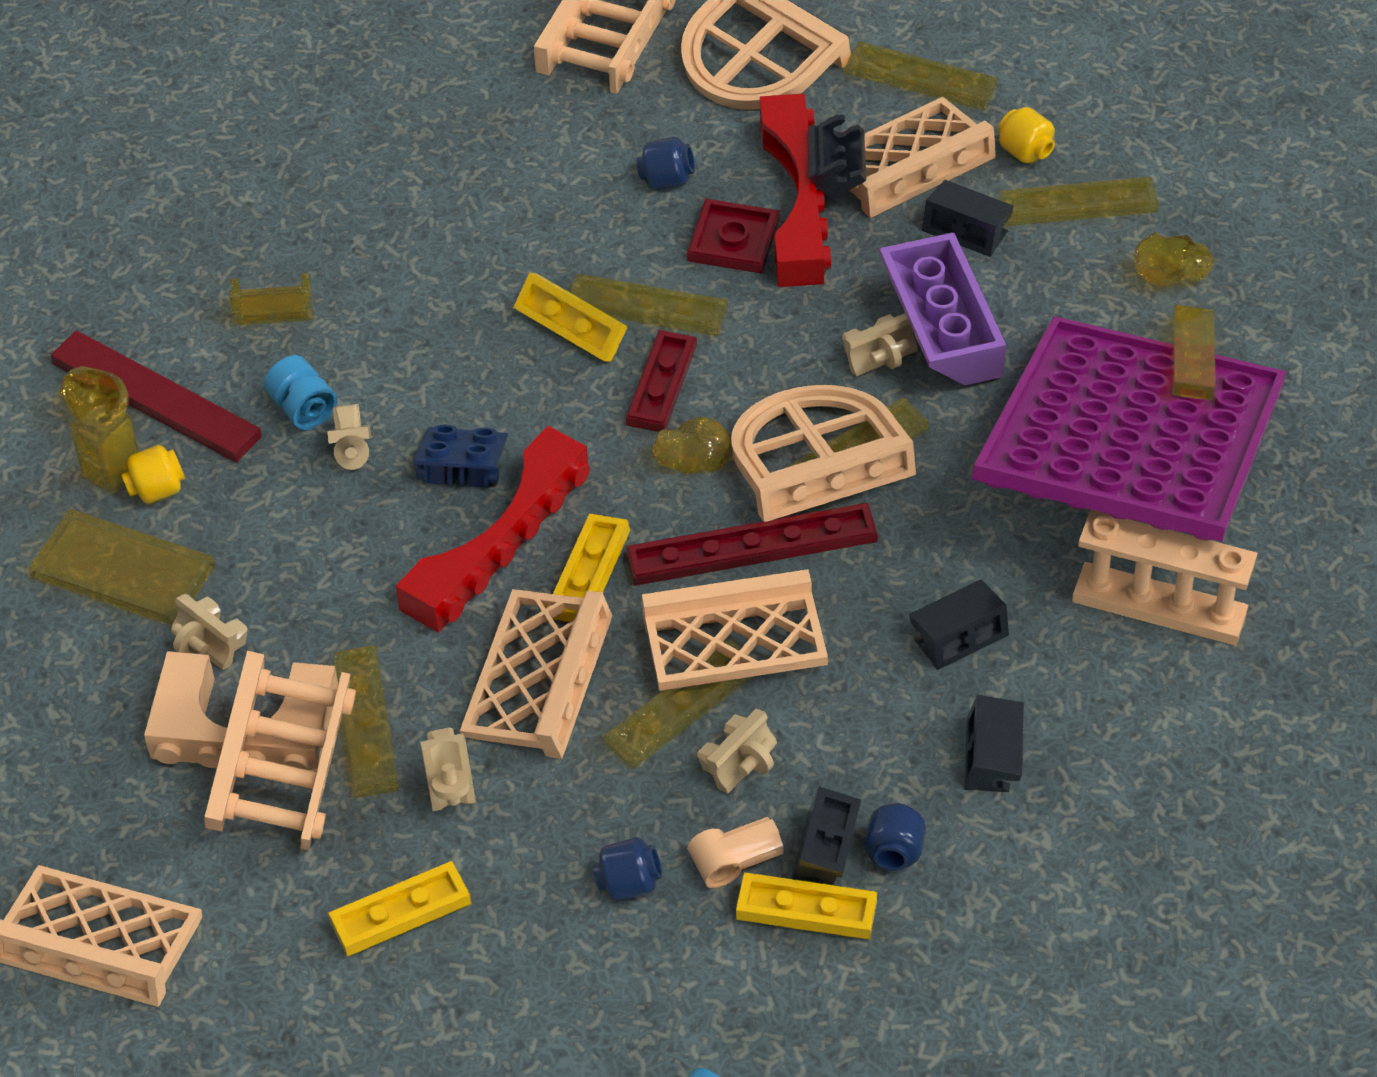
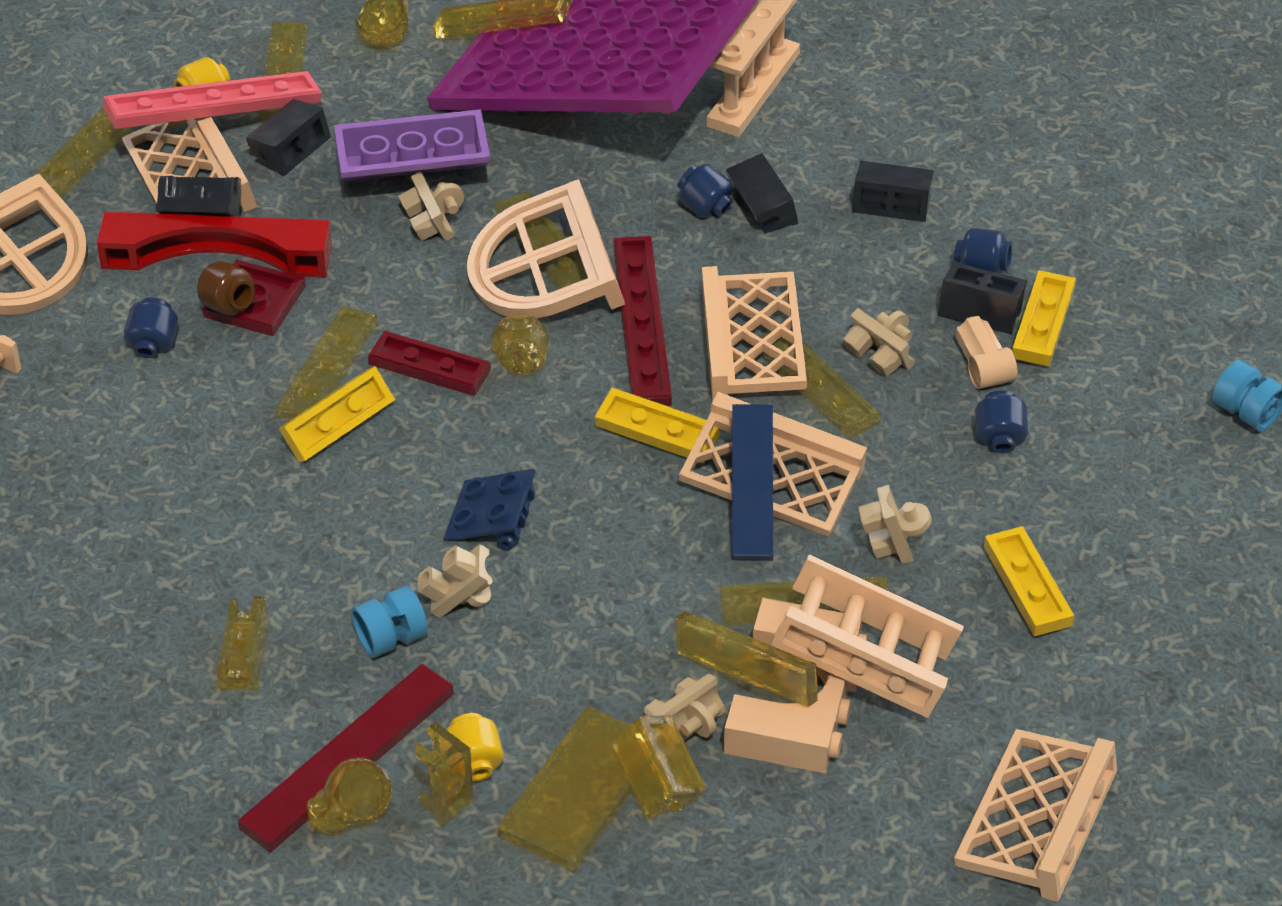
camera: 85 degrees left, 5 degrees down
(127, 610) = (658, 765): none -> clear yellow hinge
(271, 642) = (747, 658): none -> clear yellow tile
(445, 582) = (663, 527): red arch -> none
(498, 645) = (752, 482): none -> dark blue tile
(713, 199) = (225, 288): none -> reddish brown head
(950, 567) = (705, 191): none -> dark blue head
(982, 139) = (209, 99): none -> coral tile

